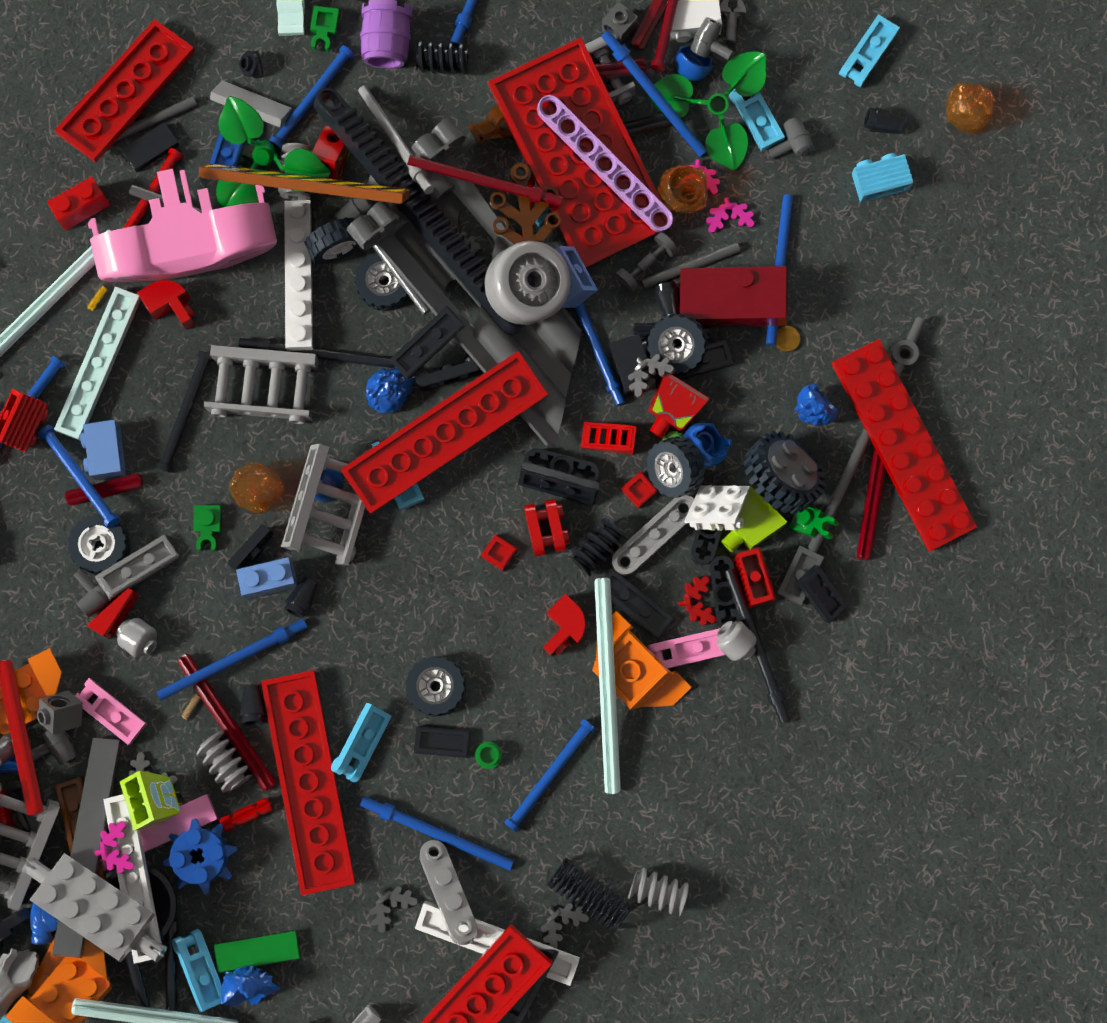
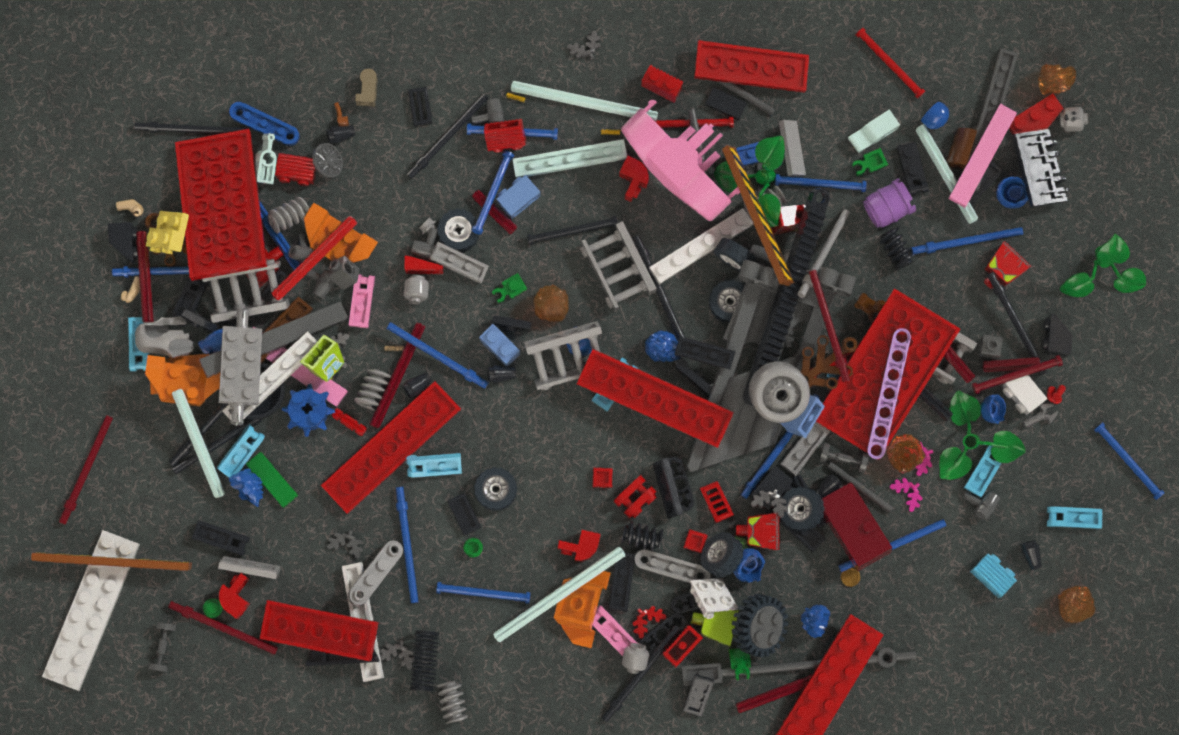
camera: 50 degrees right, 0 degrees up
(68, 578) = (425, 227): none -> light grey plate
(108, 840) = (276, 359): dark pink animal -> none
(251, 64) = (818, 132): black plate -> none
(608, 302) = (804, 449): none -> light grey tile
(621, 54) = (967, 360): blue bar -> none
(706, 40) = (1011, 409): dark grey piece -> none

